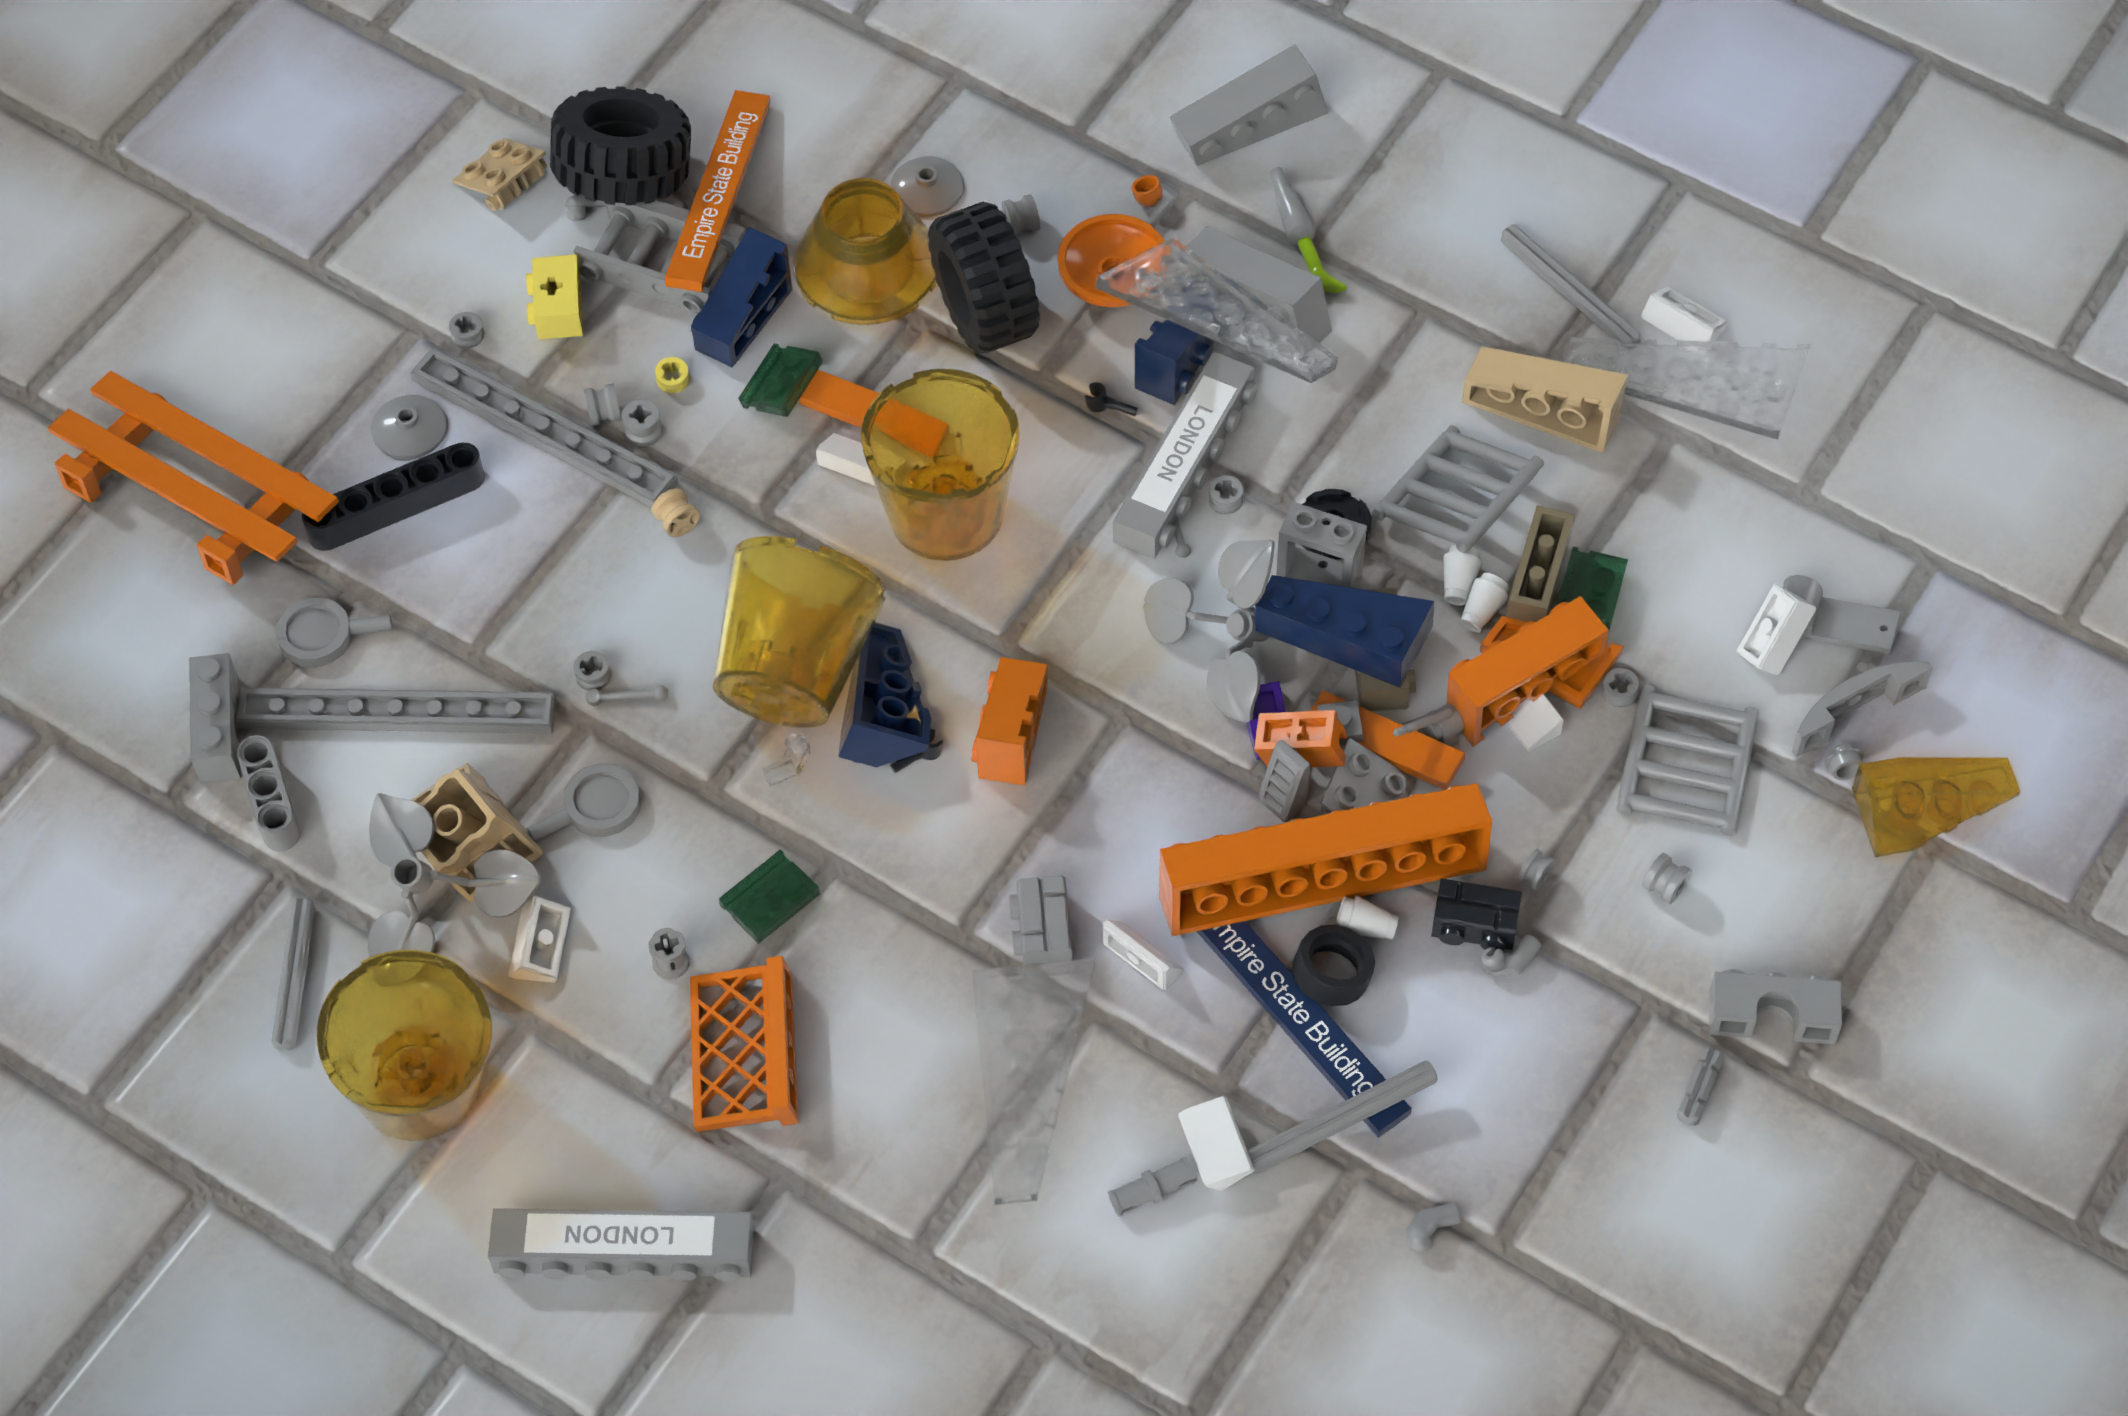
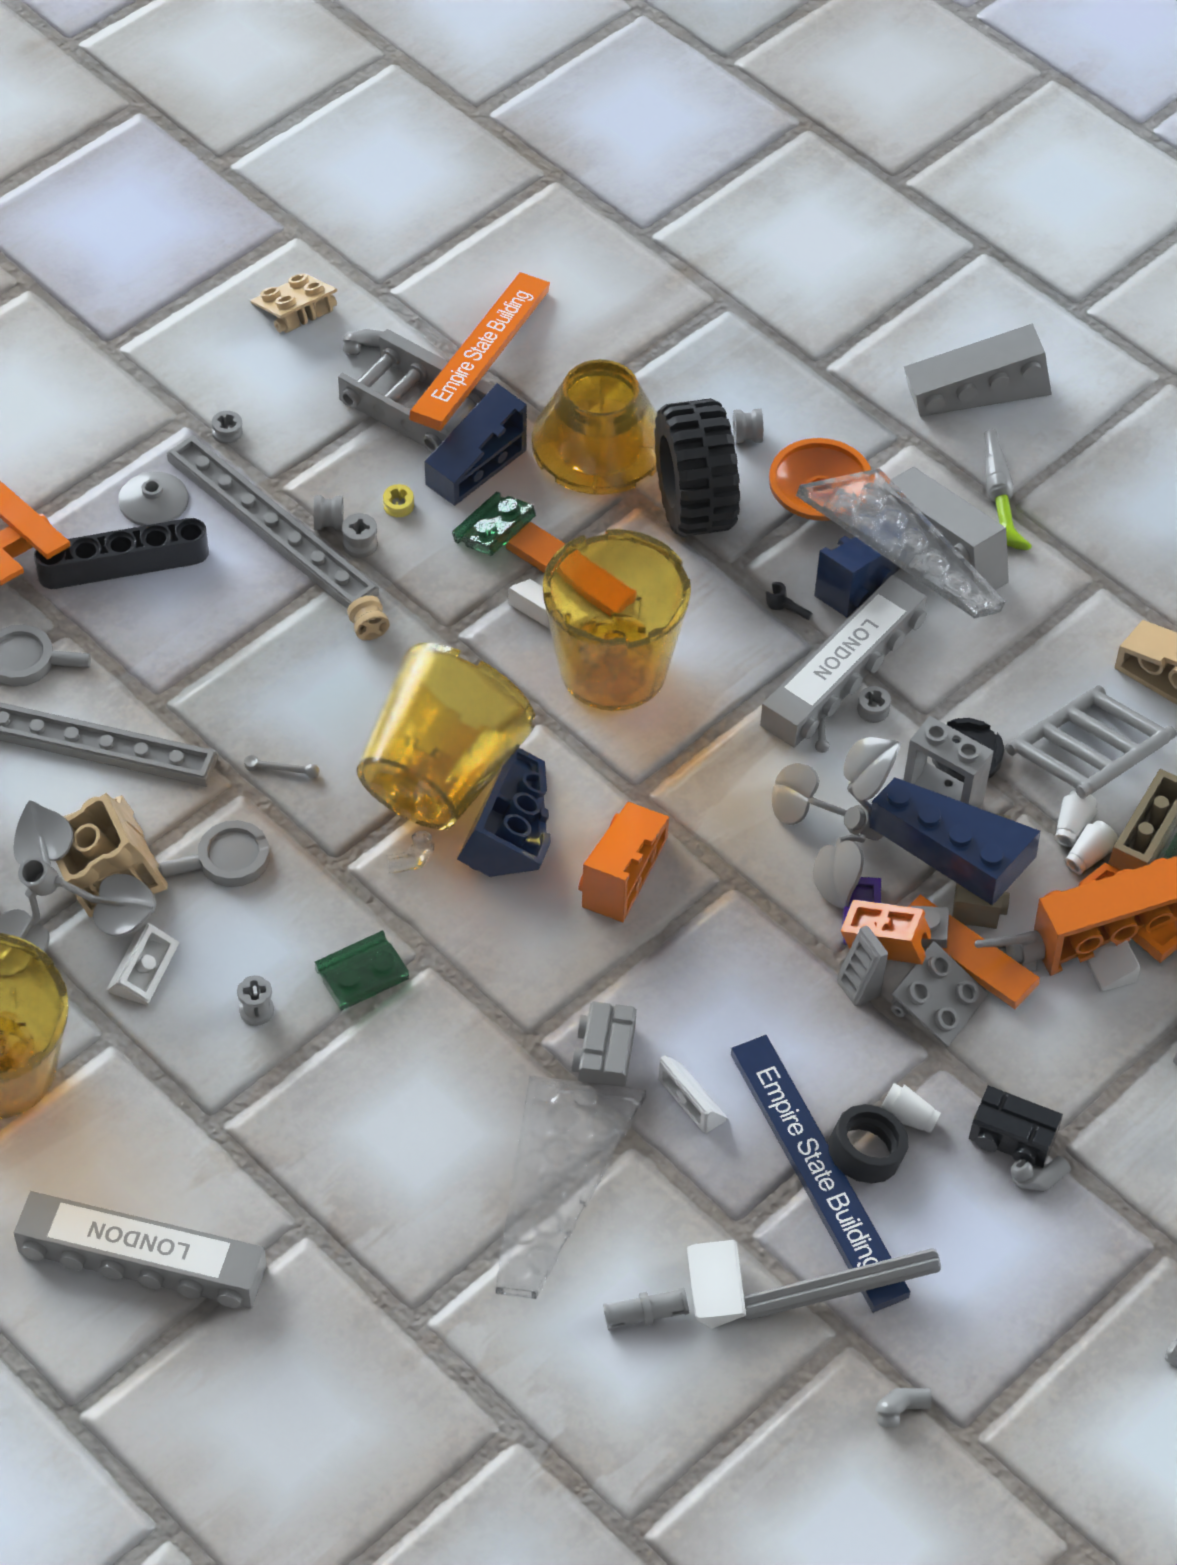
camera: 10 degrees right, 5 degrees down
(556, 297) = (312, 414): light yellow brick -> none
(587, 661) = (258, 747): light grey bush -> none
(620, 145) = (402, 295): black tyre -> none
(778, 1051) = (332, 1110): orange fence -> none
(928, 196) = (671, 383): light grey dish -> none
(932, 753) = (544, 873): black hand -> none
(1147, 190) = (868, 427): orange hinge -> none
(1324, 859) = (882, 1043): orange brick -> none
(1536, 869) = (1082, 1098): light grey bush -> none

